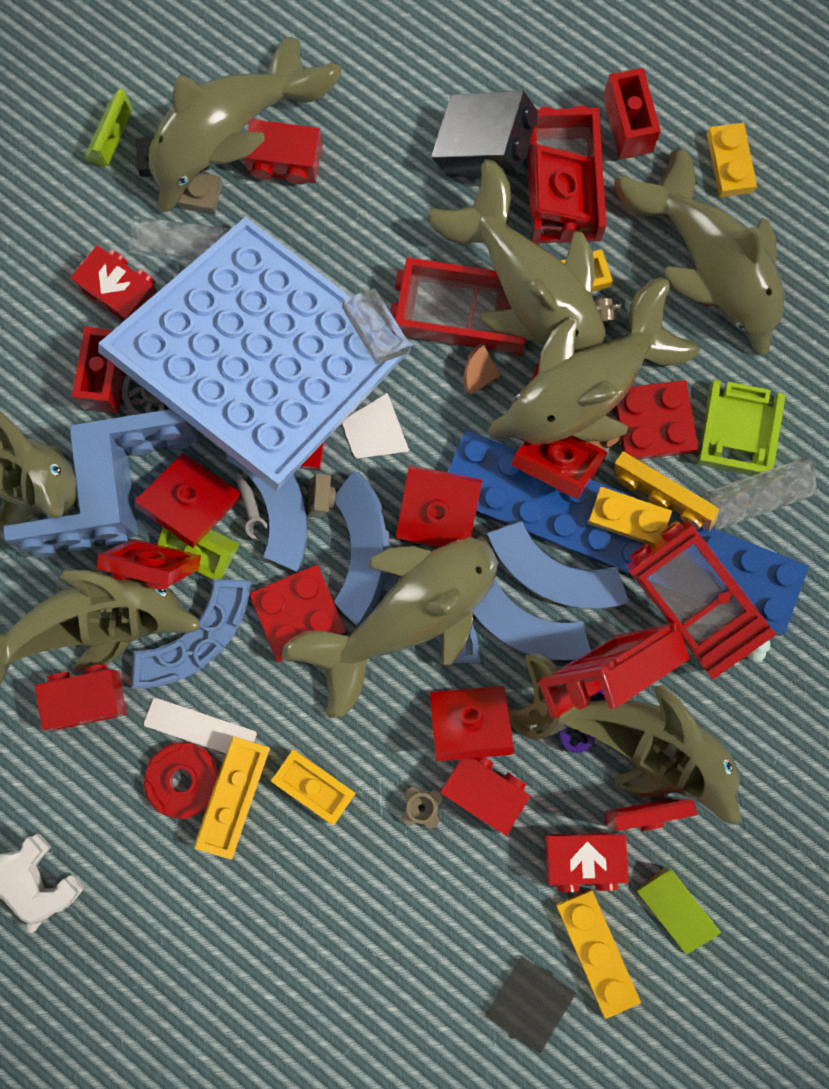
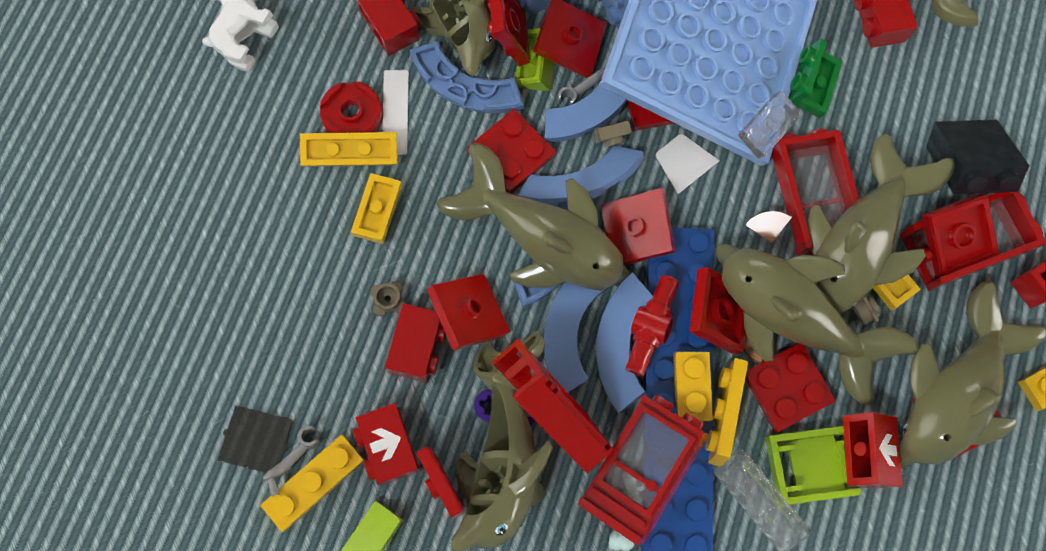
camera: 65 degrees right, 5 degrees down
(336, 257) = (815, 79): none -> green bracket
(553, 534) = (652, 325): none -> red pin
(568, 974) = (289, 460): none -> light grey piece
(749, 366) = (872, 451): none -> red brick

